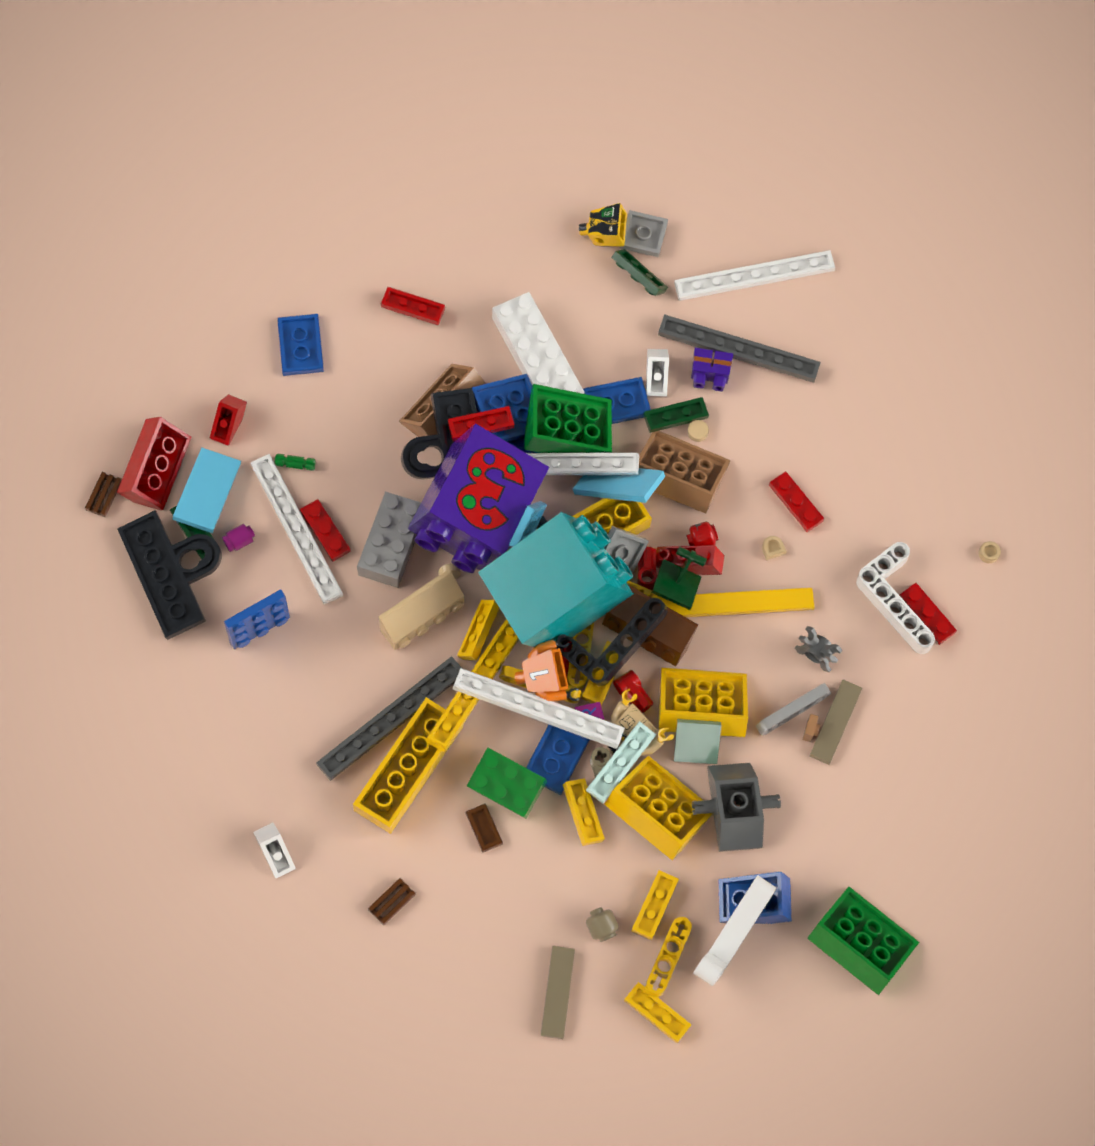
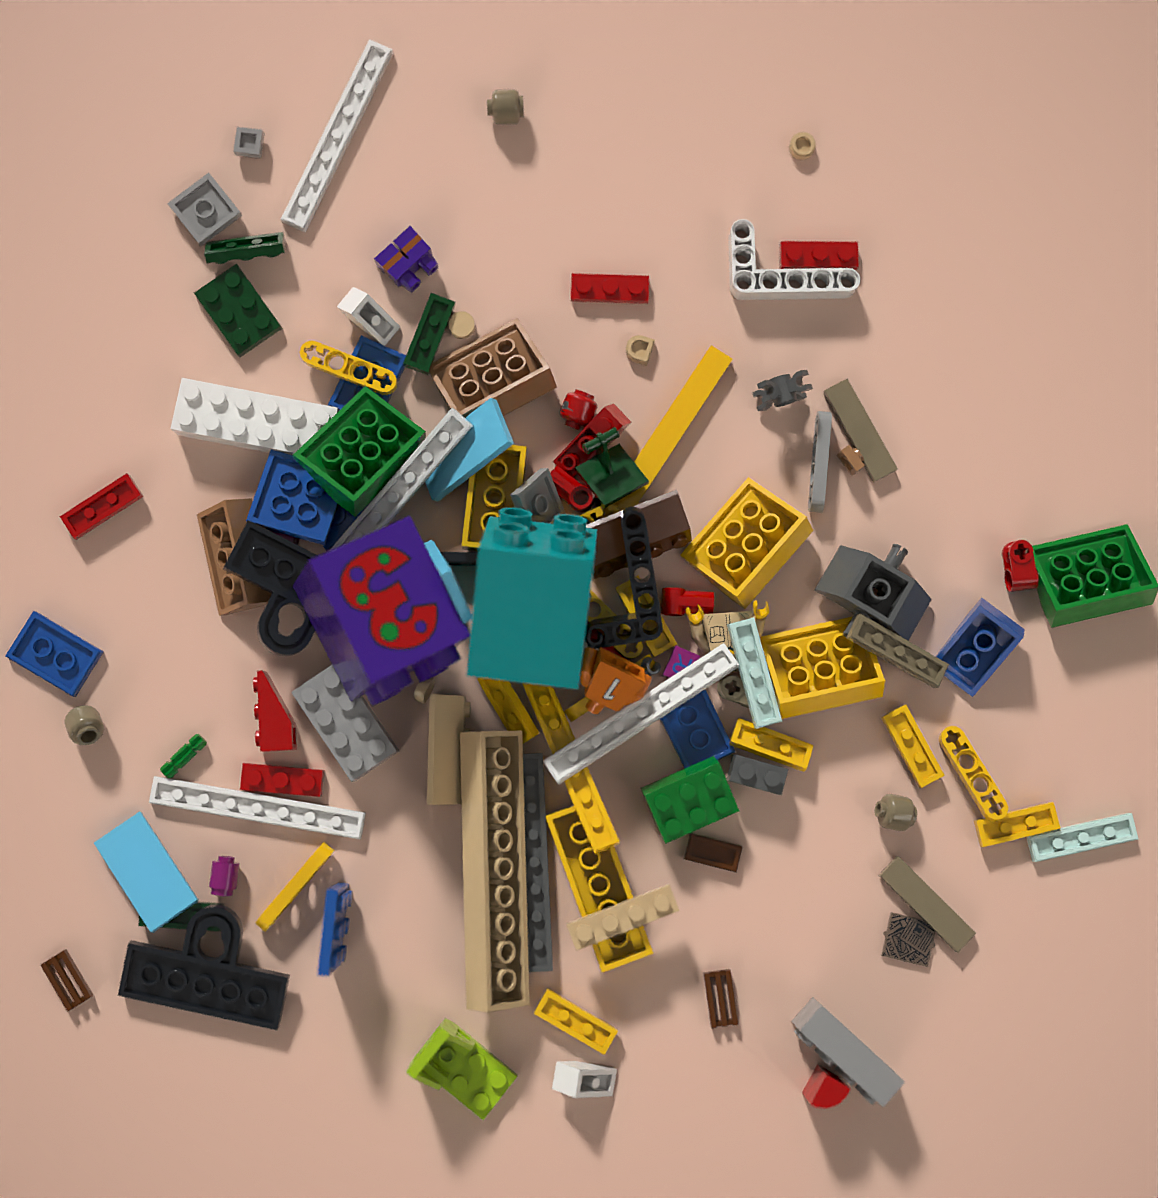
camera: 55 degrees left, 15 degrees up
(154, 463) = (73, 904): red slope -> none
(224, 764) = (462, 1068): none -> lime bracket
(227, 419) = (81, 791): red slope -> none
(263, 584) = (294, 887): none -> yellow beam
(270, 390) = (84, 725): none -> dark tan head
(307, 818) = (575, 1021): none -> yellow plate
(358, 499) = (276, 723): none -> red slope
(368, 692) = (494, 870): none -> tan brick
(384, 1005) = (825, 1088): none -> red brick
(398, 789) = (622, 917): none -> tan plate
(419, 1002) = (853, 1058): none -> light grey brick
(491, 420) = (295, 541): red plate -> none
(524, 998) = (908, 939): none -> clear smoke piece
(556, 815) = (757, 774): none -> dark grey brick
(597, 297) = (238, 310): none -> dark green plate
(606, 226) = (167, 241): torso -> none
(612, 383) = (350, 364): none -> yellow beam
(684, 1065) = (1082, 837): none -> light aqua tile
(697, 741) = (785, 580): tile -> none
(706, 228) = (248, 142): none -> light grey plate
(709, 844) = (897, 651): none -> dark tan tile
(735, 931) = (1004, 702): white beam -> none
(742, 349) = (404, 214): dark grey plate -> none
(828, 890) = (1019, 569): none -> red piece
(856, 357) = (505, 106): none -> dark tan head

